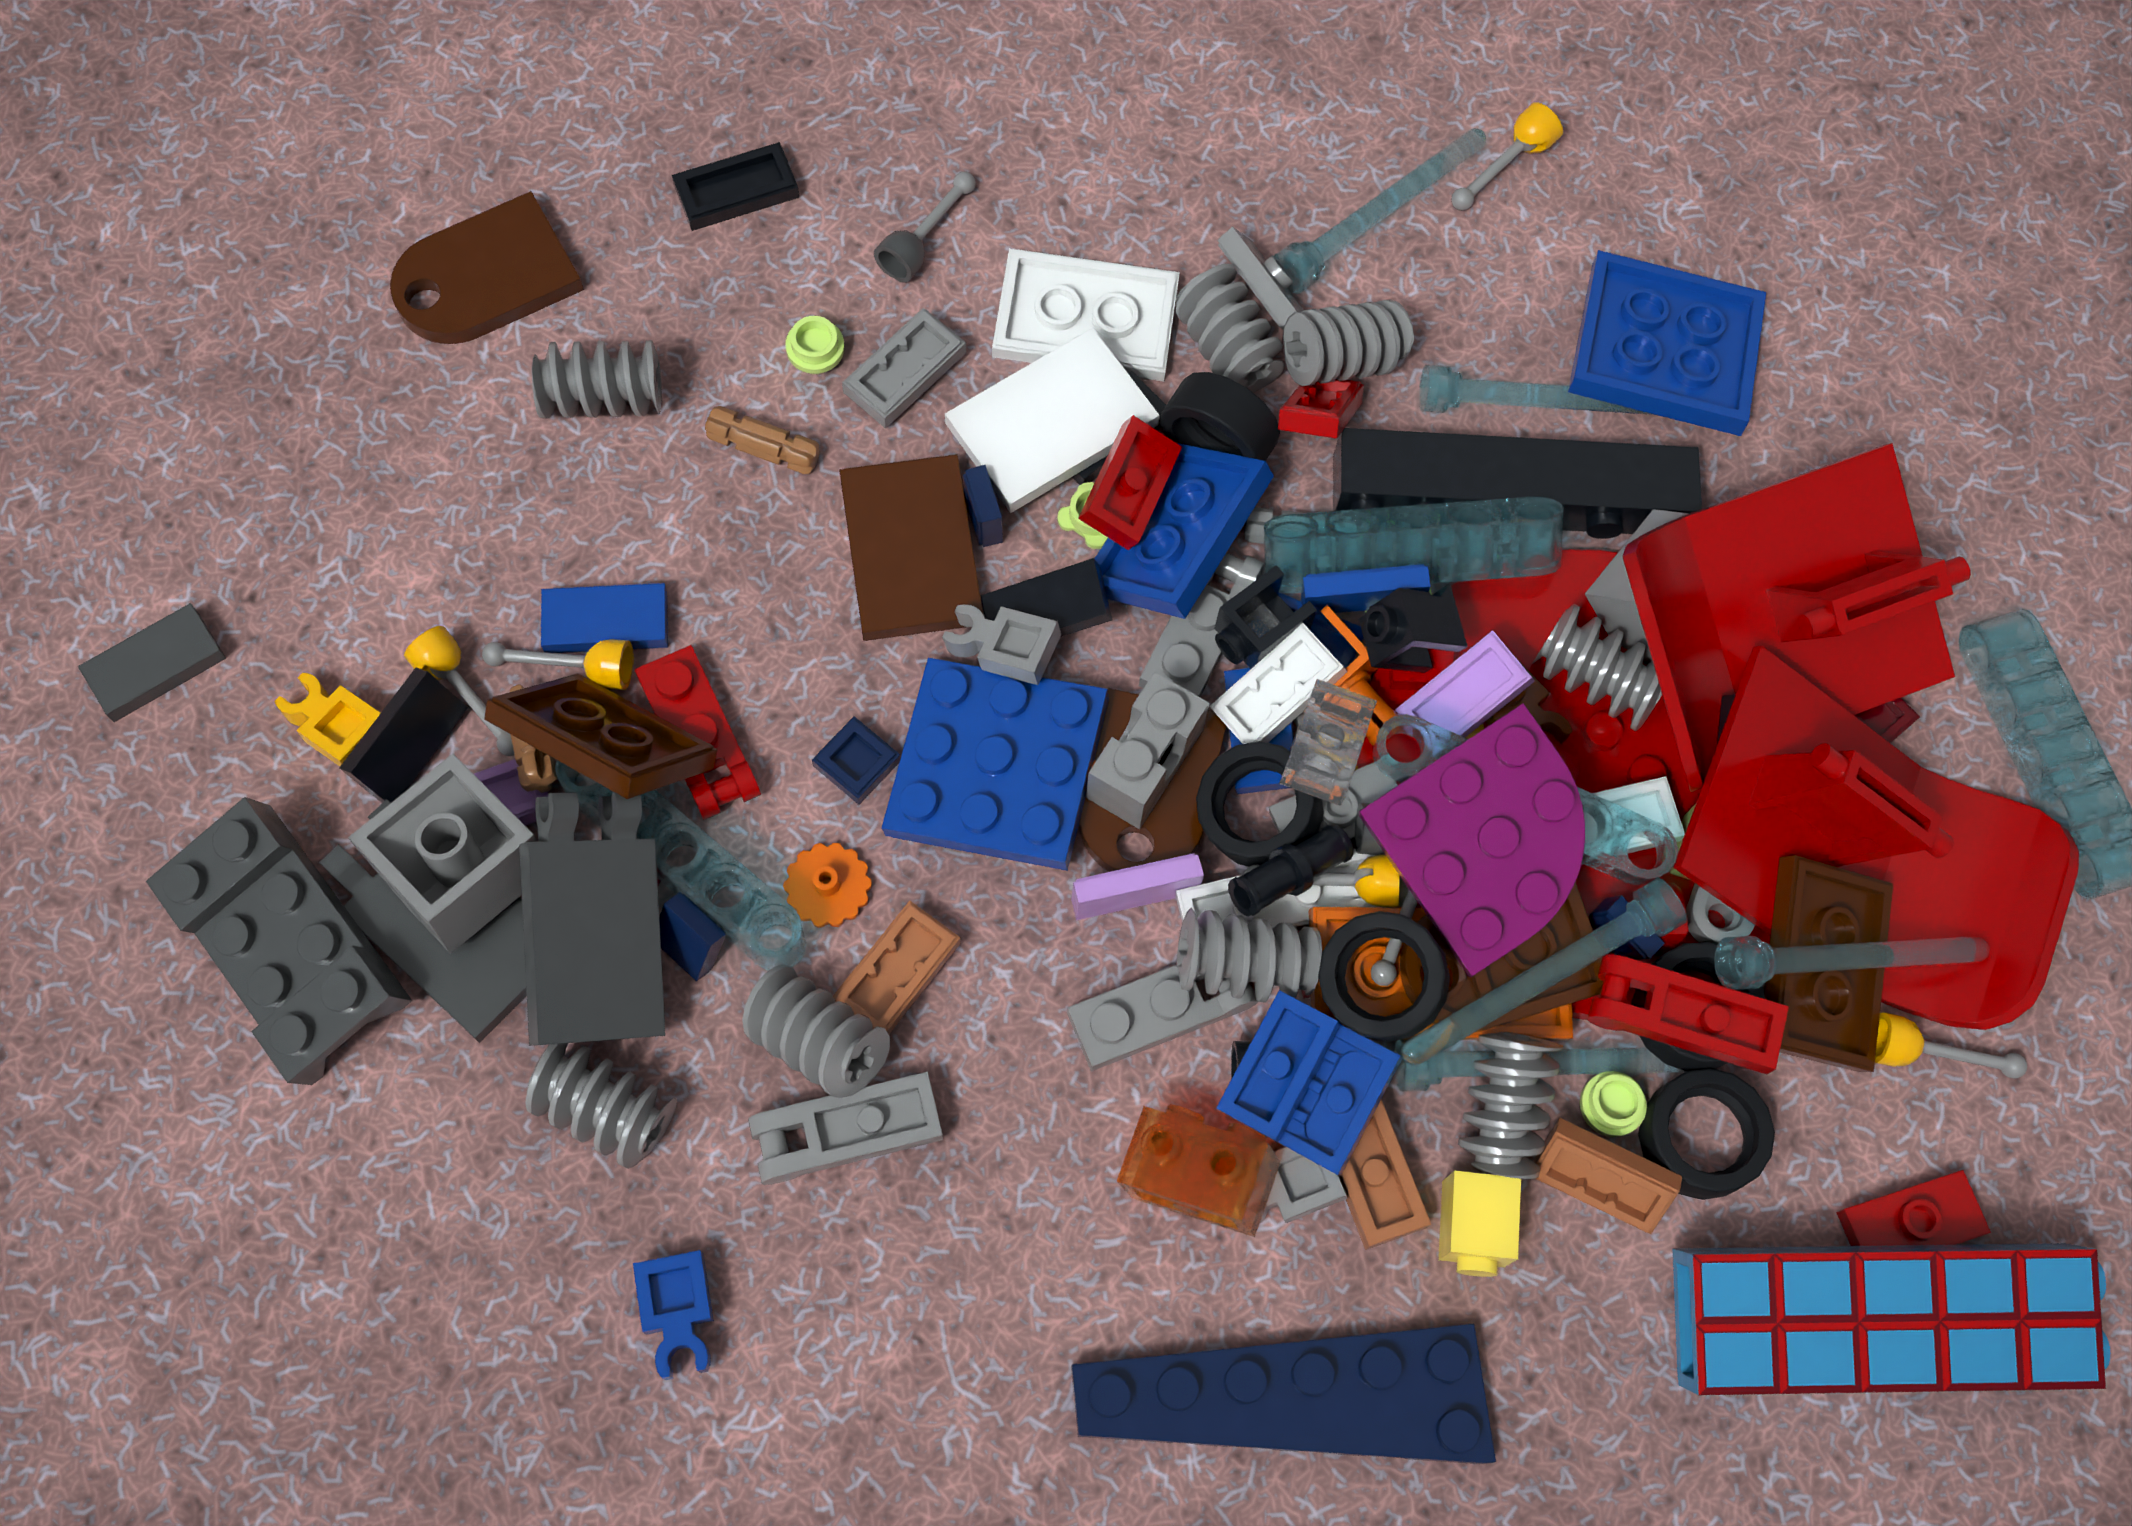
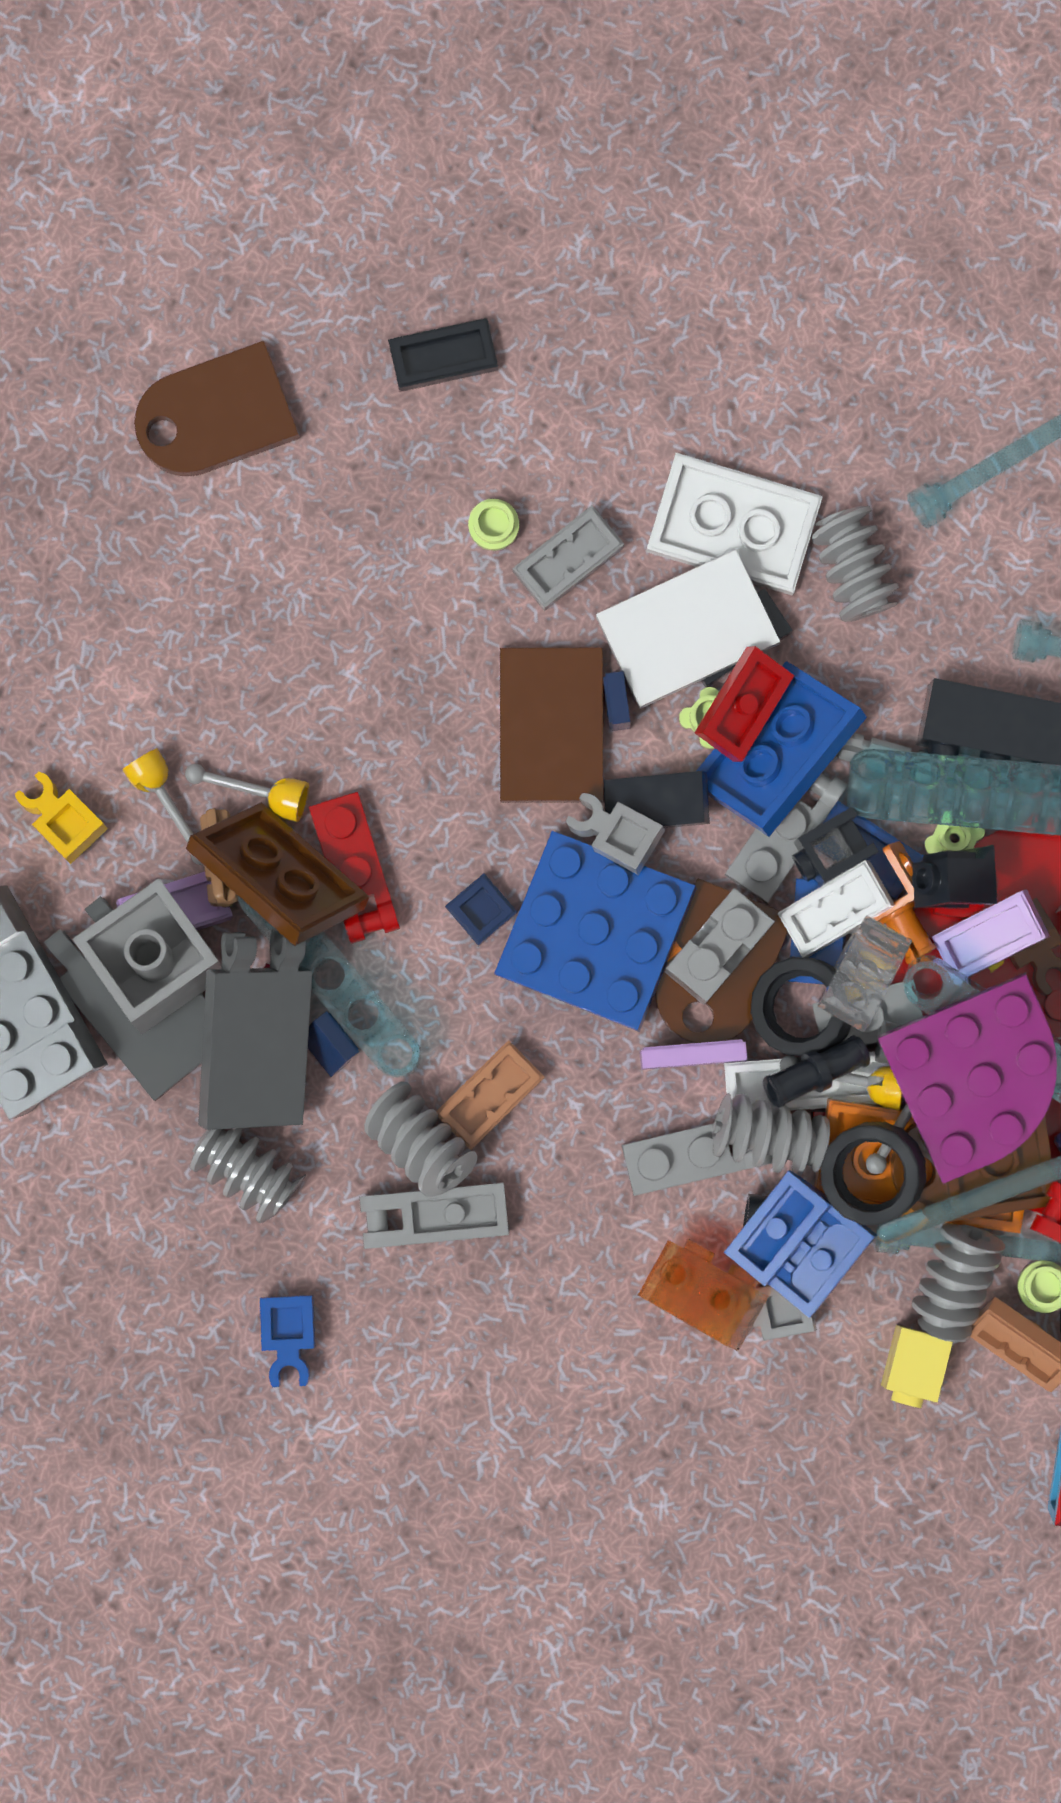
camera: 15 degrees right, 15 degrees up
(404, 736) = (117, 842): black tile -> none
(583, 616) = (288, 753): blue tile -> none
(596, 381) = (304, 539): light grey piece -> none
(762, 440) = (438, 608): medium nougat axle -> none
(827, 885) = (444, 1012): orange piece -> none
(903, 252) = (582, 443): dark grey hinge -> none
(1220, 417) = (830, 658): black tyre -> none
(1265, 277) = (897, 519): light grey plate -> none
(1321, 408) = (921, 653): red plate -> none
(1346, 341) = (955, 594): light grey piece -> none
(1348, 1395) = (785, 1477): dark blue wing -> none
(1361, 588) = (924, 832): blue tile -> none
(1381, 1186) = (845, 1325): nougat plate -> none

